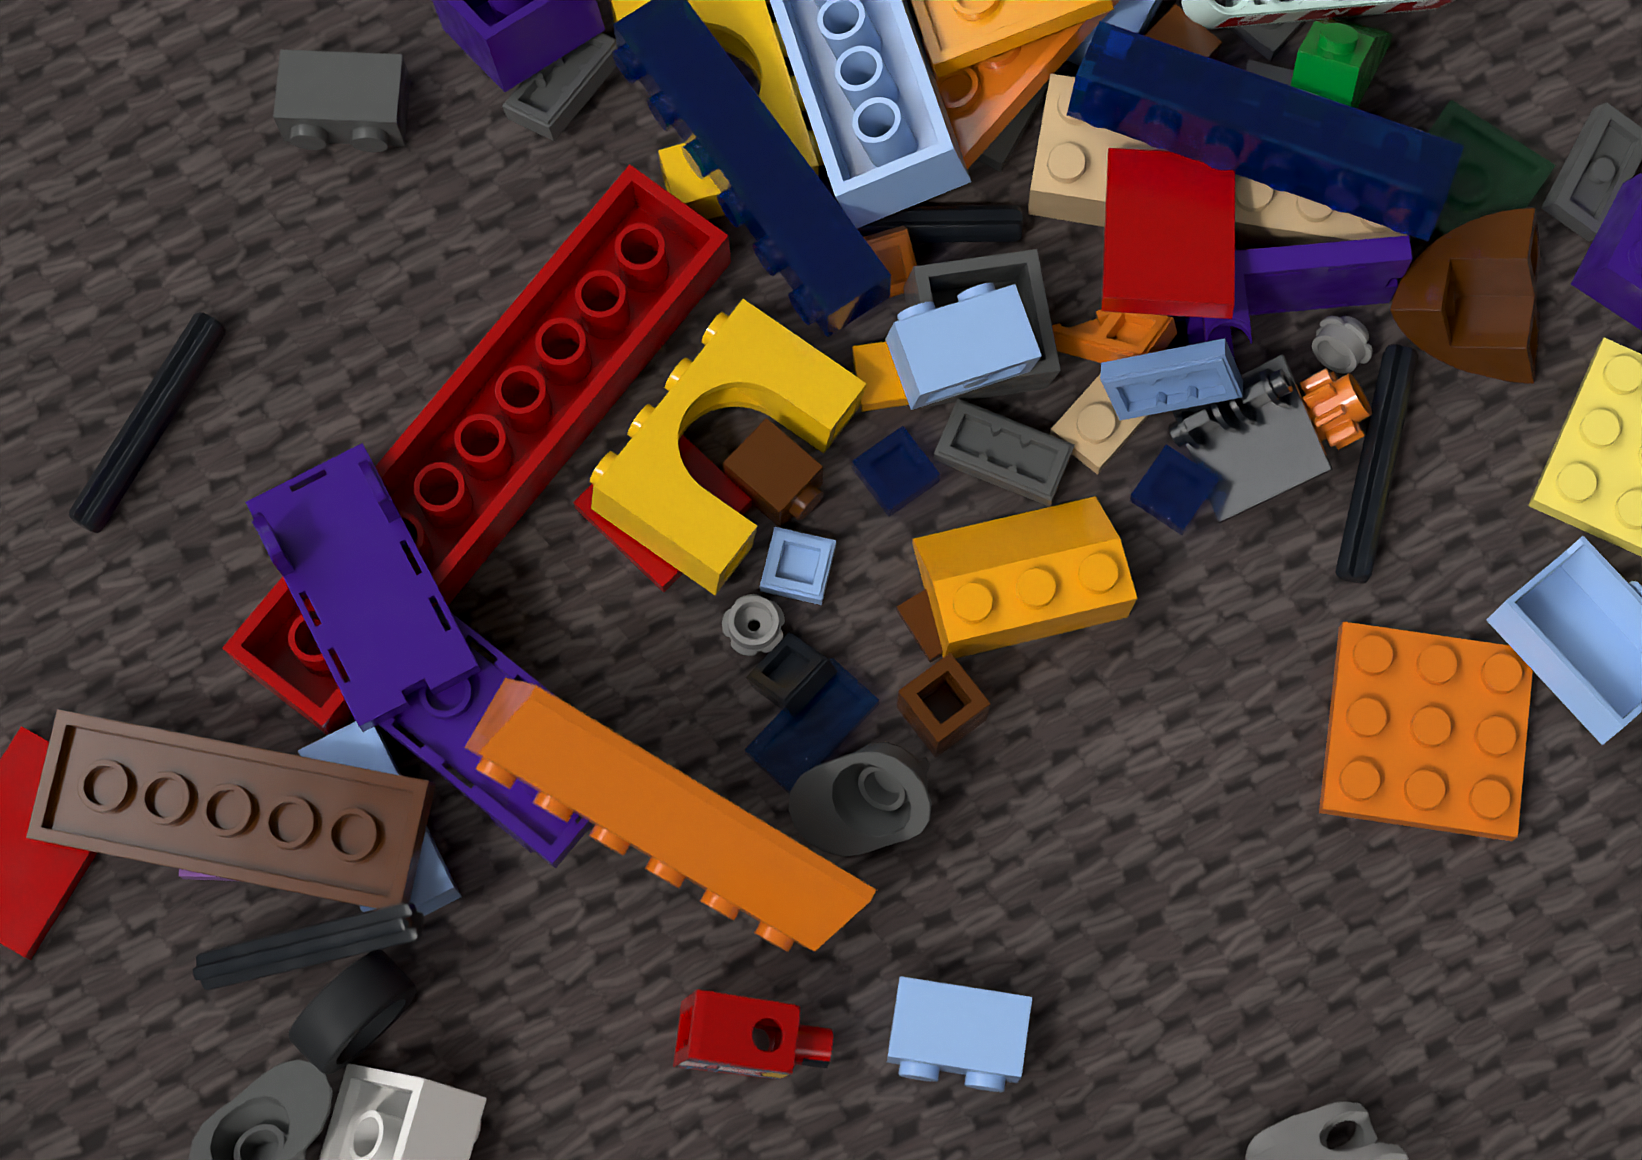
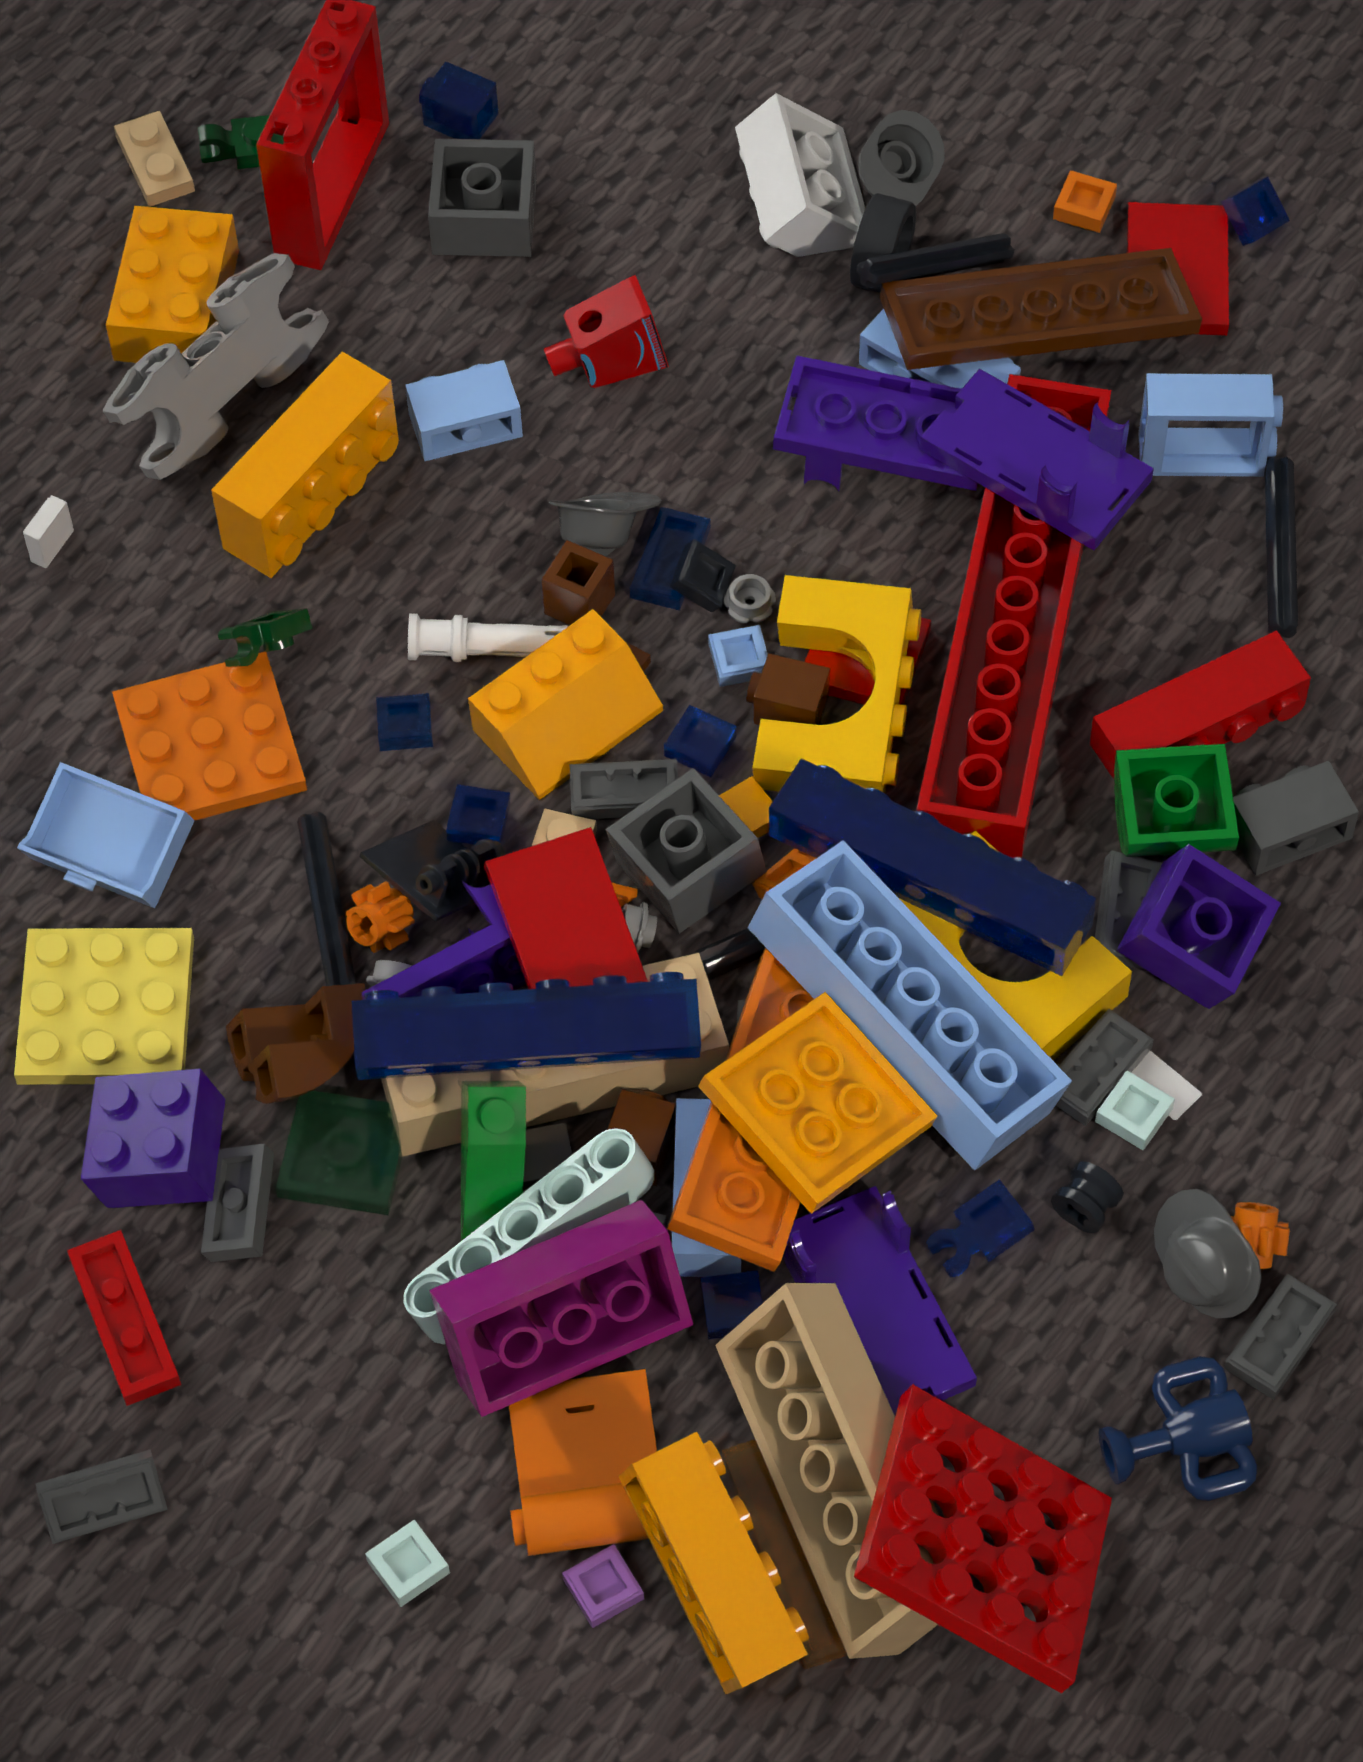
camera: 155 degrees right, 15 degrees down
(73, 983) = (1085, 201): none -> orange plate
(139, 570) = (1209, 399): none -> light blue window
(358, 255) = (1208, 704): none -> red brick
(459, 137) = (1174, 800): none -> green brick
(664, 815) = (734, 405): orange slope -> none
(962, 344) = (686, 783): light blue brick -> none
(1068, 288) = (640, 924): none -> light grey plate
(1097, 721) = (460, 638): none -> white pin
(1172, 379) = (474, 856): medium blue plate -> none
(1187, 1012) = (306, 465): none -> light orange brick
(1201, 654) = (404, 722): none -> clear blue tile
(1315, 822) = (270, 631): none -> dark green plate
(1520, 1092) = (48, 531): none -> white tile

